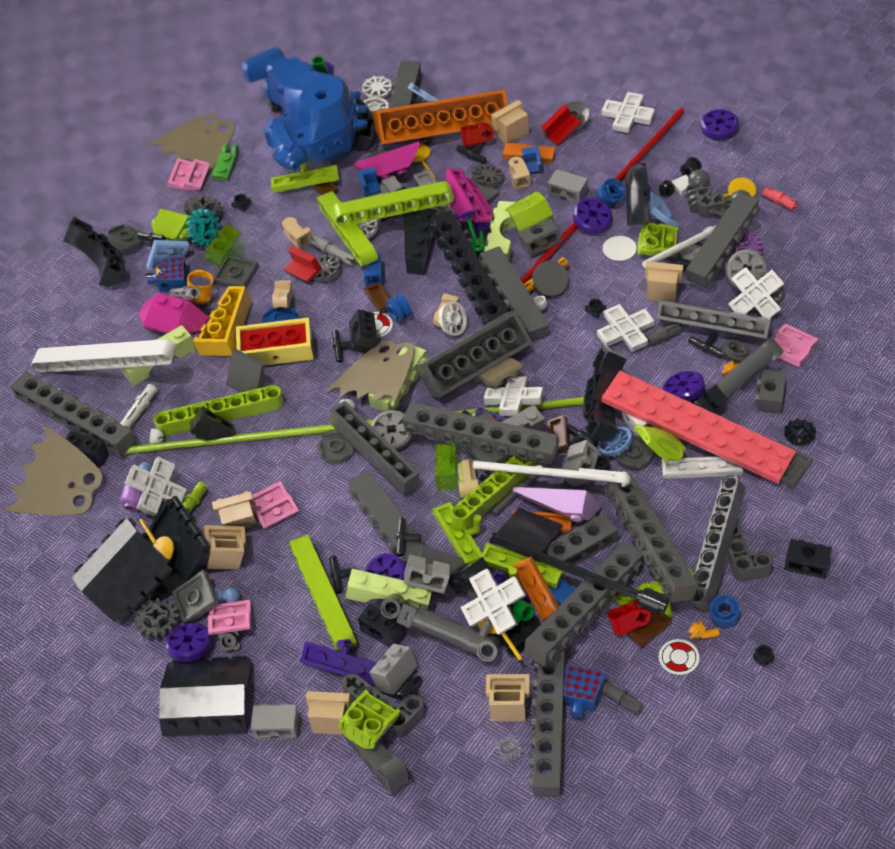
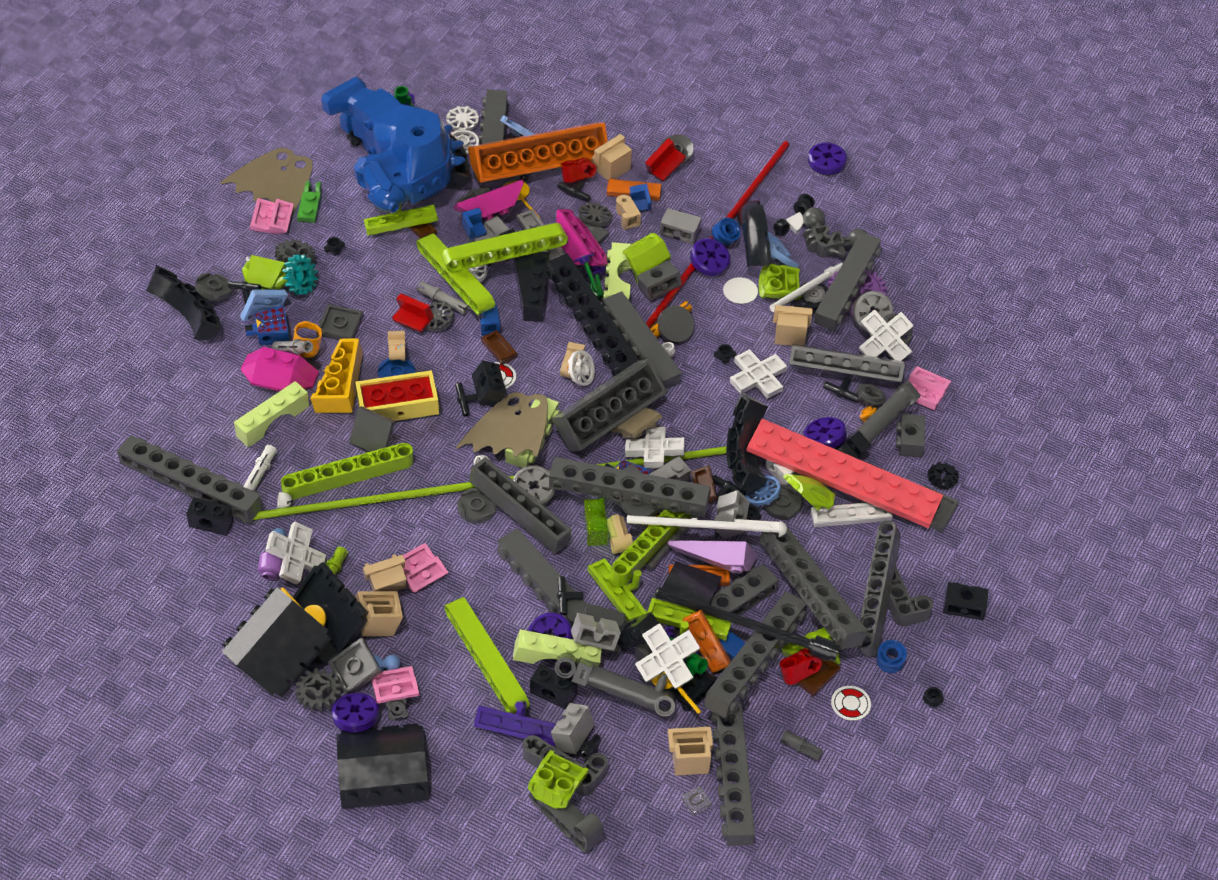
camera: 15 degrees left, 0 degrees up
(48, 479) = (176, 549): dark tan piece -> none
(104, 356) = (217, 416): white beam -> none
(210, 426) = (341, 487): black slope -> none
(222, 244) = (323, 293): clear neon green brick -> none
(275, 721) = (458, 787): light grey brick -> none
(295, 233) = (399, 279): tan leg -> none
(327, 710) = (513, 773): tan plate -> none
(337, 574) = (498, 636): black piece -> none
(398, 308) = (522, 358): blue wheel -> none
(582, 689) = (762, 739): blue torso -> none
(628, 112) = (732, 145): white plate -> none
(663, 333) = (797, 379): dark grey axle -> none
(699, 630) = (867, 676): light orange plate -> none
(741, 184) = (854, 222): yellow piece -> none
(780, 198) = (897, 236): coral pin -> none

